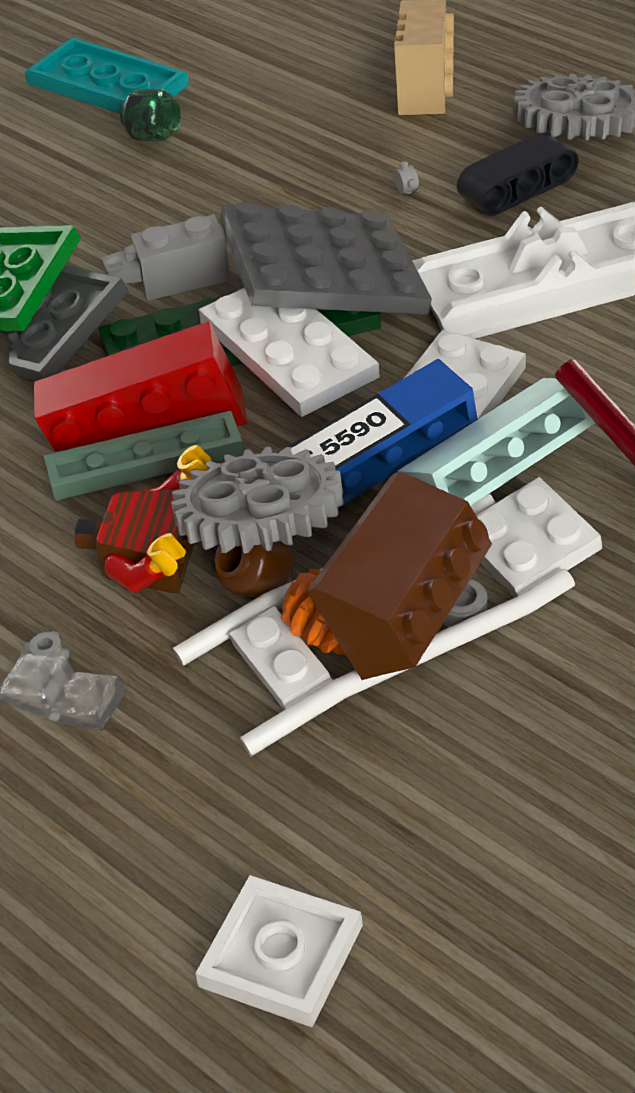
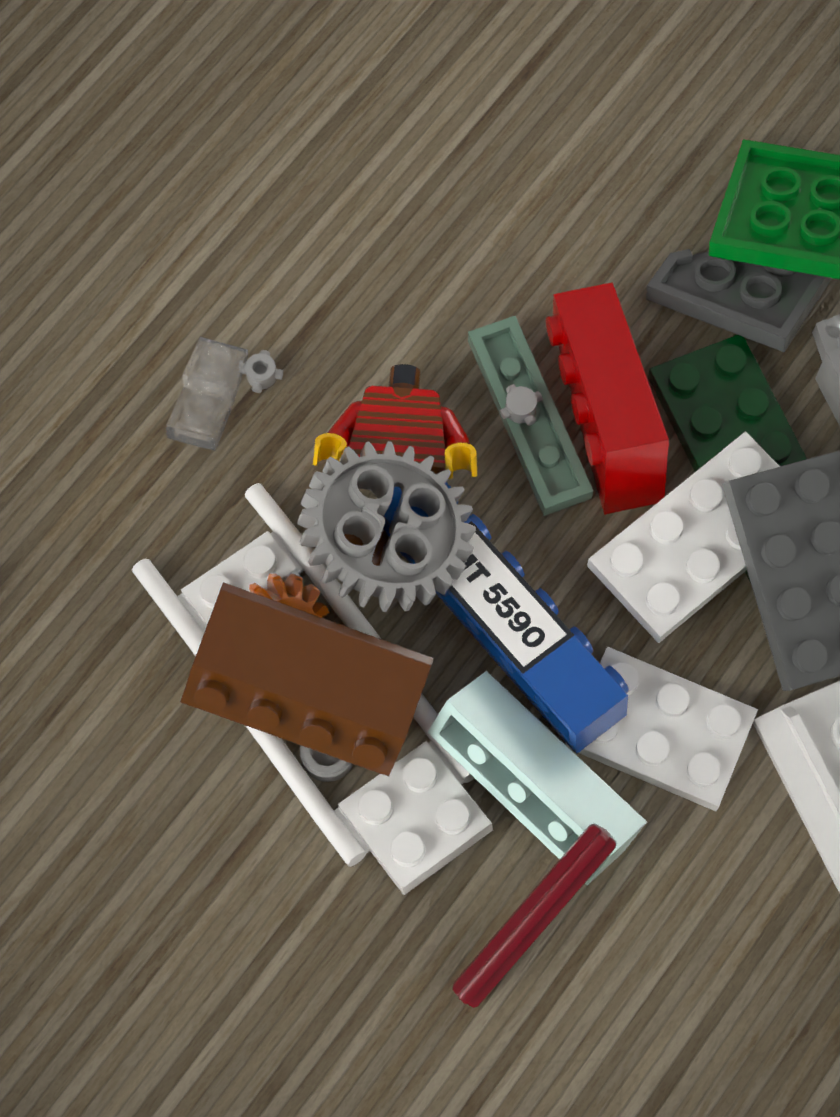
camera: 80 degrees right, 25 degrees up
(138, 446) = (521, 404): none -> light grey piece

